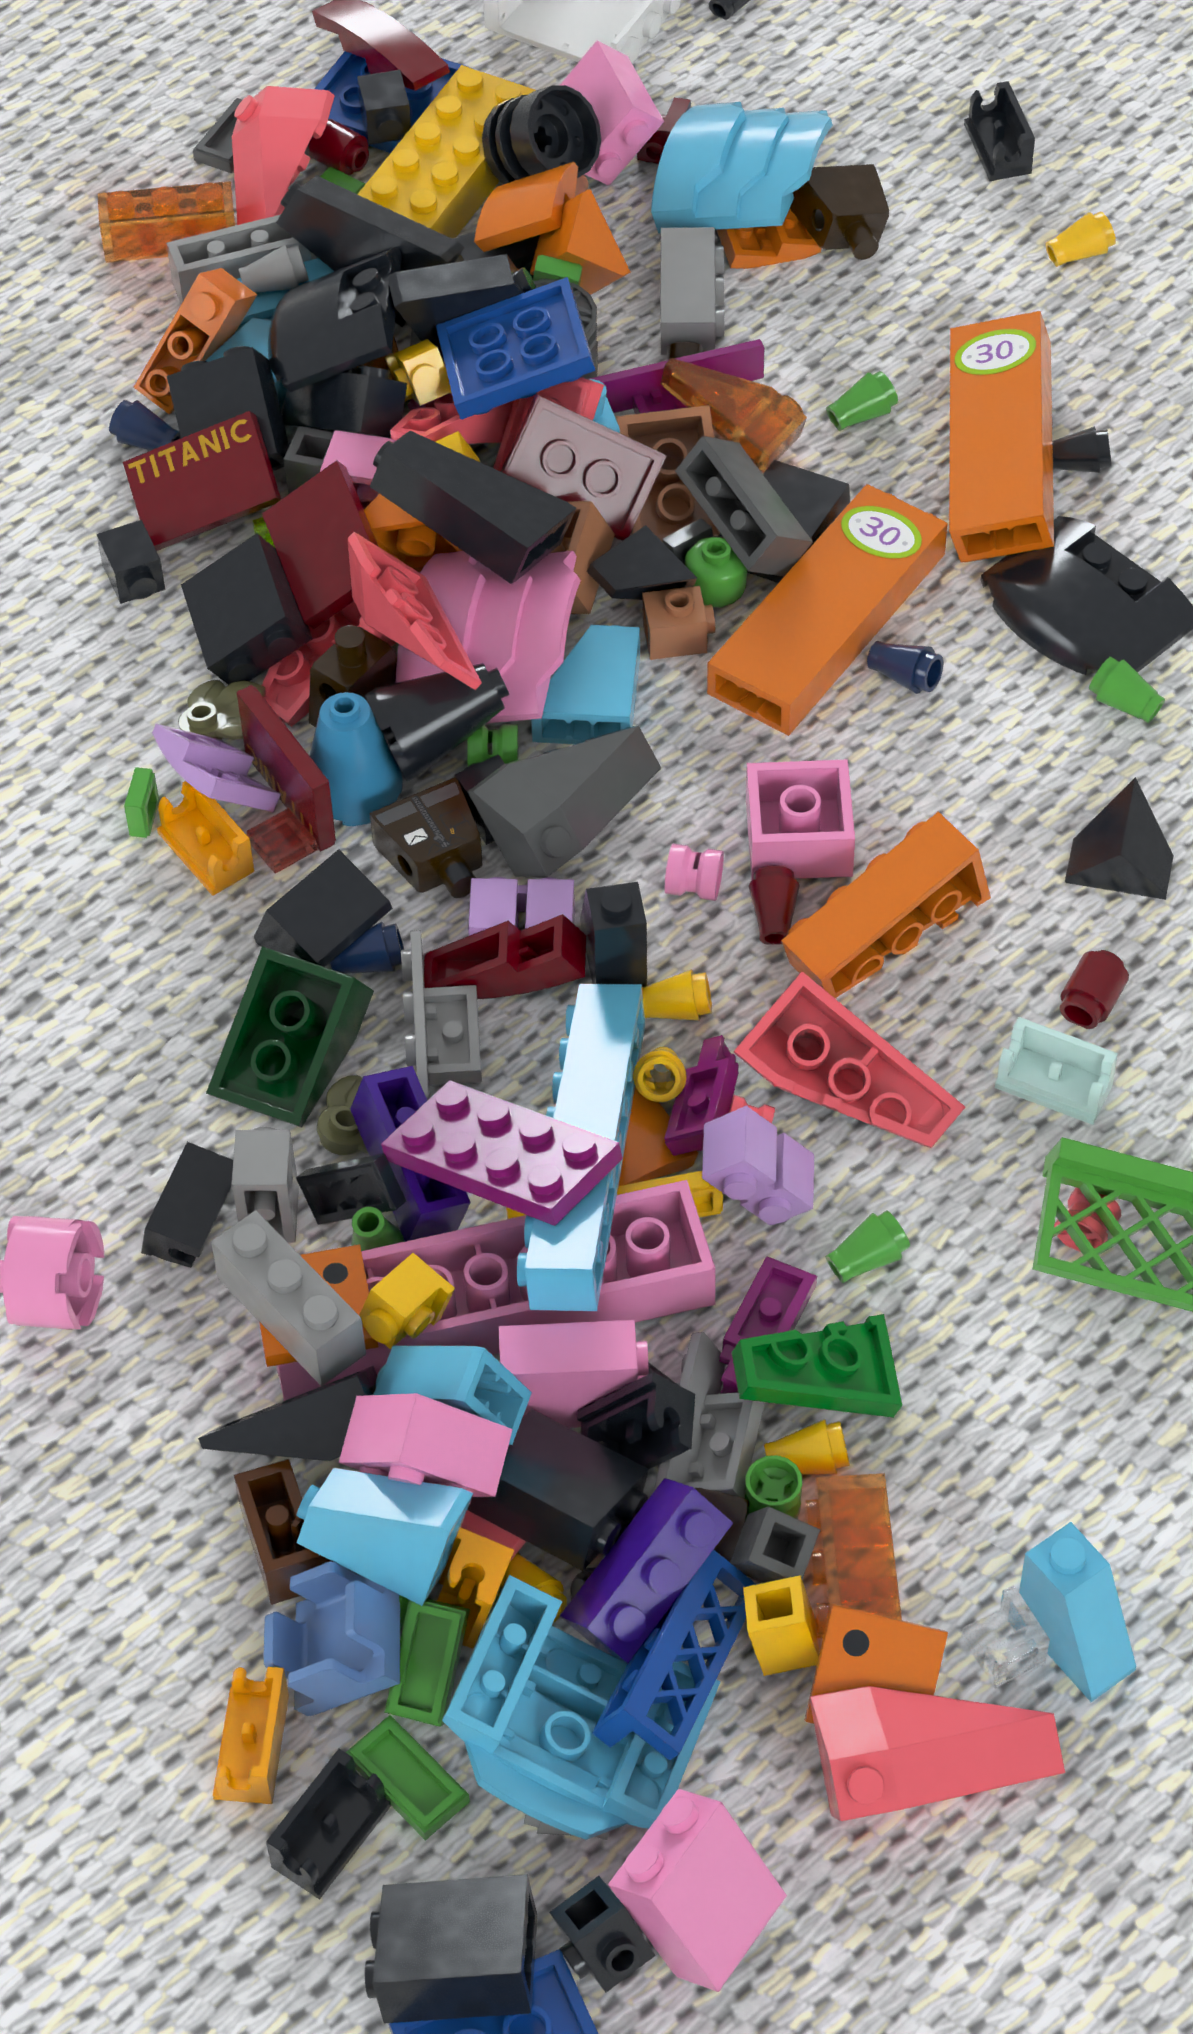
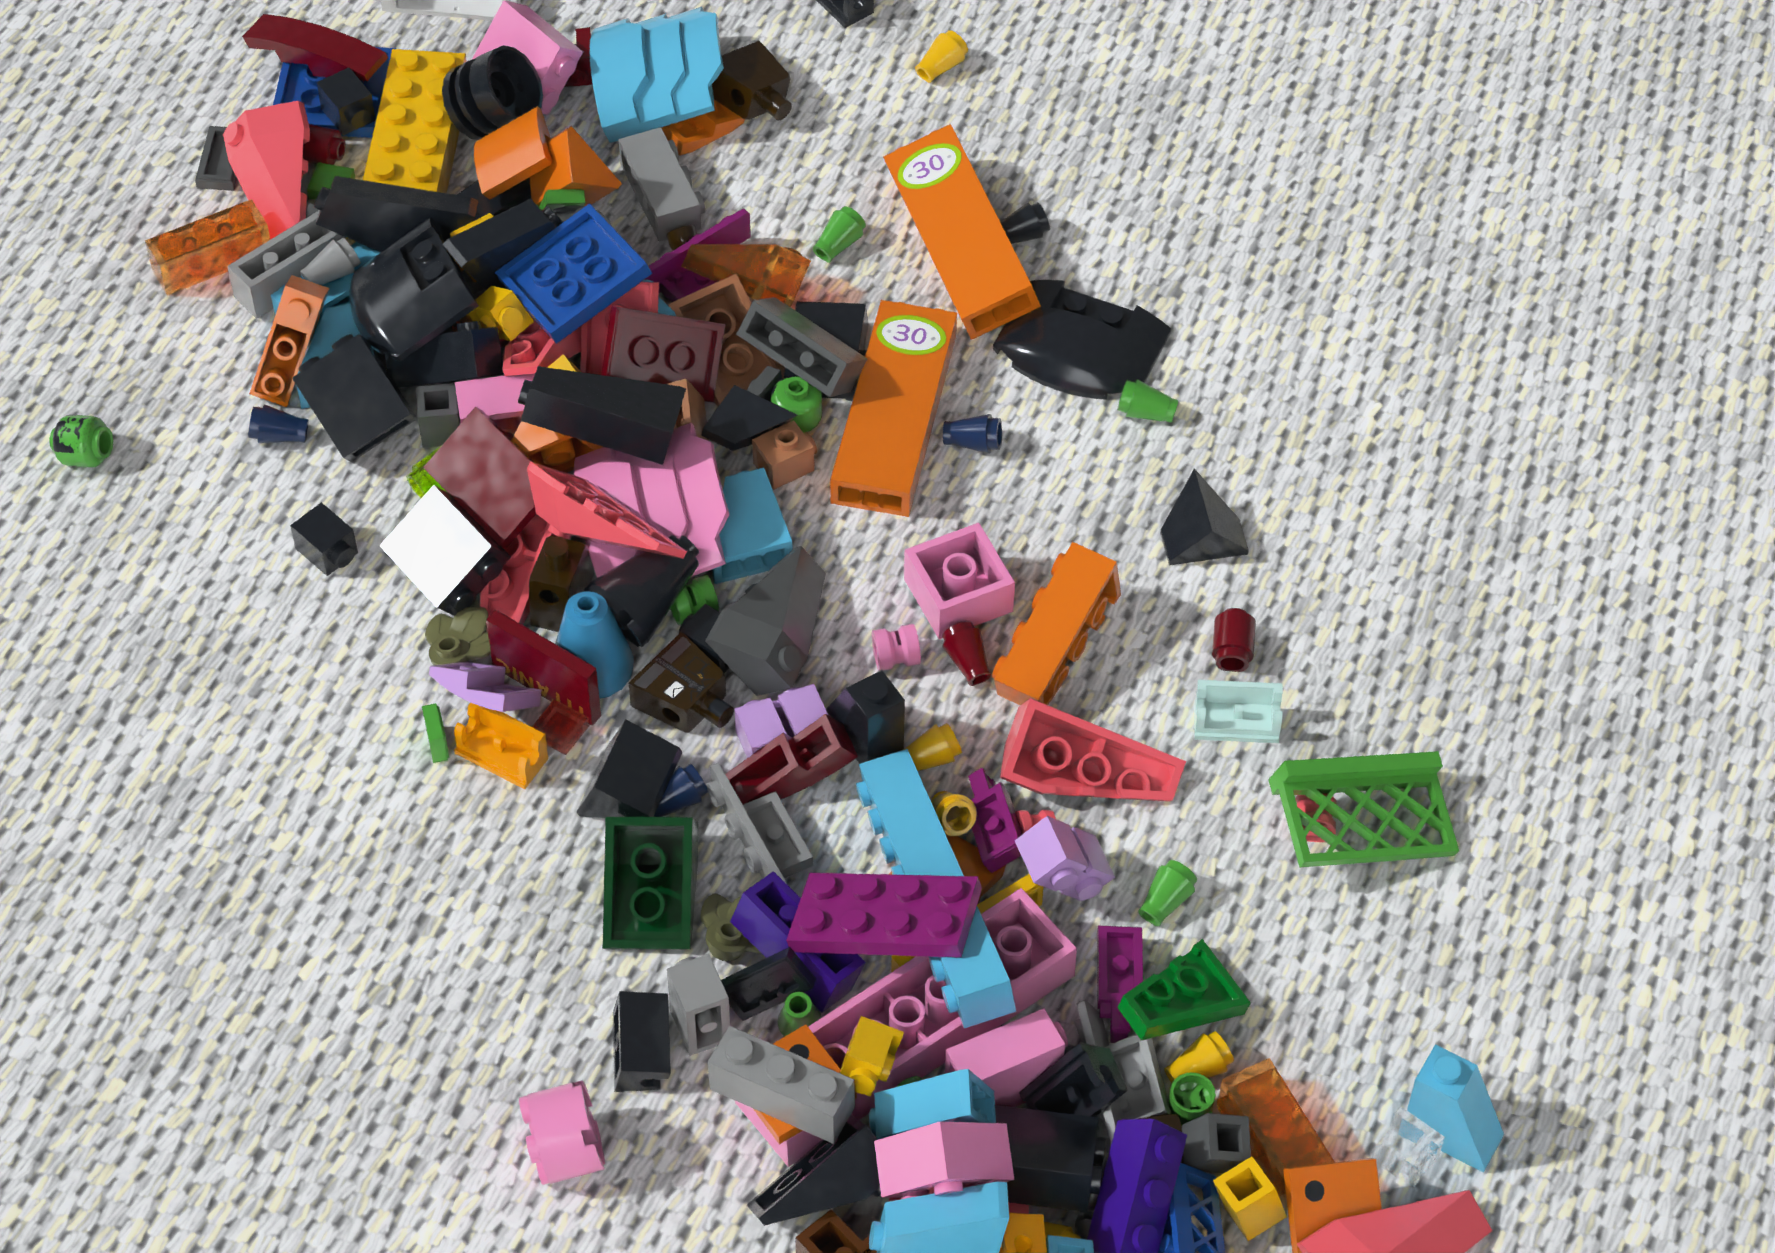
camera: 25 degrees left, 0 degrees up
(202, 480) = (356, 454): dark red tile -> none

